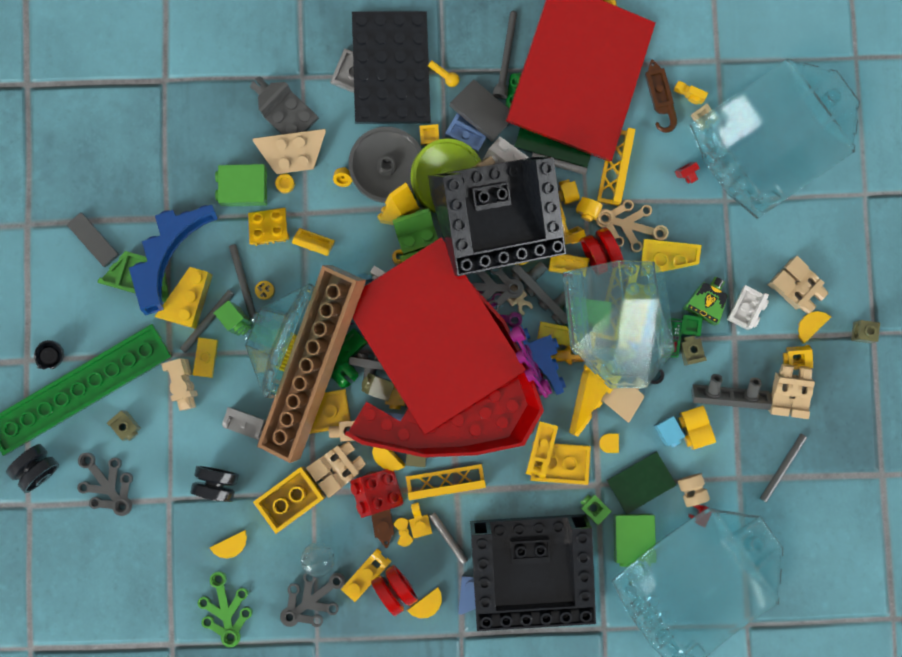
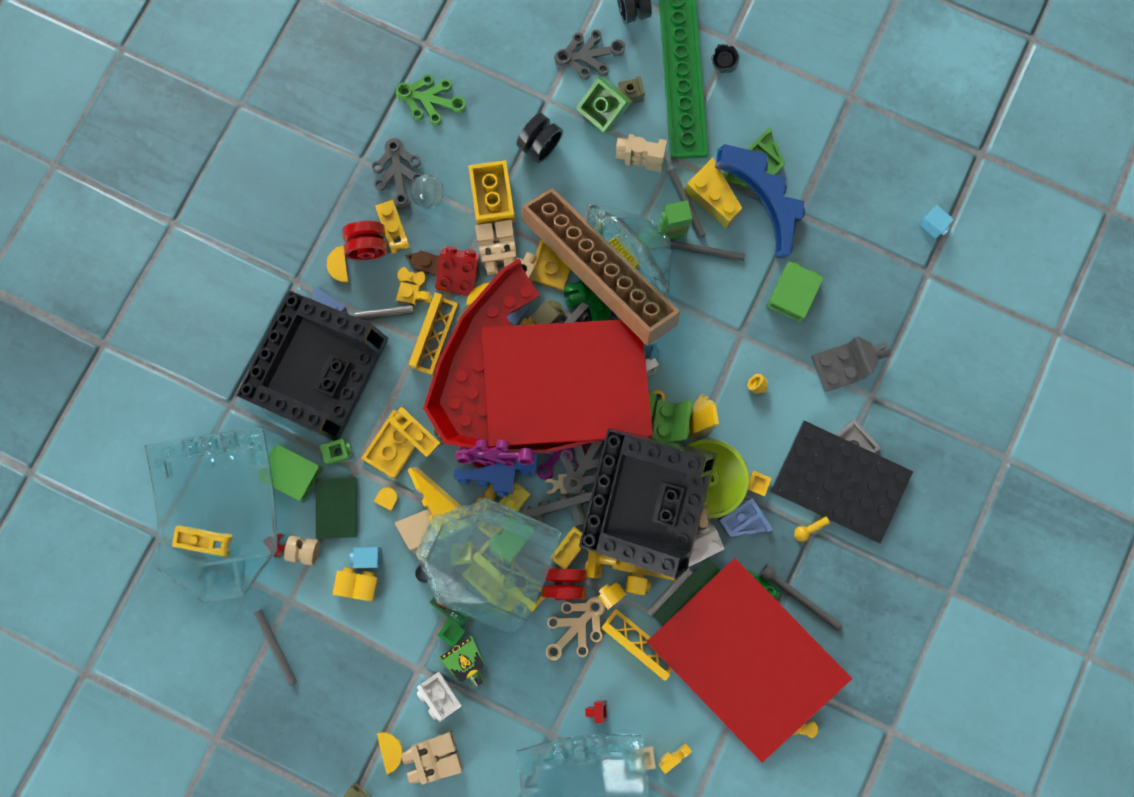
camera: 115 degrees right, 5 degrees down
(92, 239) = (809, 142): dark grey tile -> none
(114, 93) = (936, 222): none -> medium azure brick
(152, 441) = (604, 104): none -> bright green brick
(205, 357) = (654, 186): yellow plate -> none
(230, 547) = (480, 128): yellow tile -> none
(243, 423) = (581, 189): light grey hinge -> none
(264, 290) = (688, 265): yellow tile -> none
(267, 226) = (745, 295): yellow hinge -> none
(284, 183) = (778, 330): yellow tile -> none
(291, 151) = (805, 350): tan wing -> none
(313, 241) = (710, 328): yellow plate -> none
(382, 162) = (752, 425): dark grey dish -> none
(481, 110) = (758, 544): dark grey tile -> none
(661, 95) = (686, 727): reddish brown plate -> none
(670, 254) = (529, 645): yellow wing -> none
(687, 355) = (421, 614): olive brick -> none
(733, 580) = (201, 540): none -> yellow plate
(734, 397) = (357, 646): dark grey plate -> none
(791, 392) = (337, 692): tan hips -> none
(805, 358) = (360, 719): yellow brick -> none

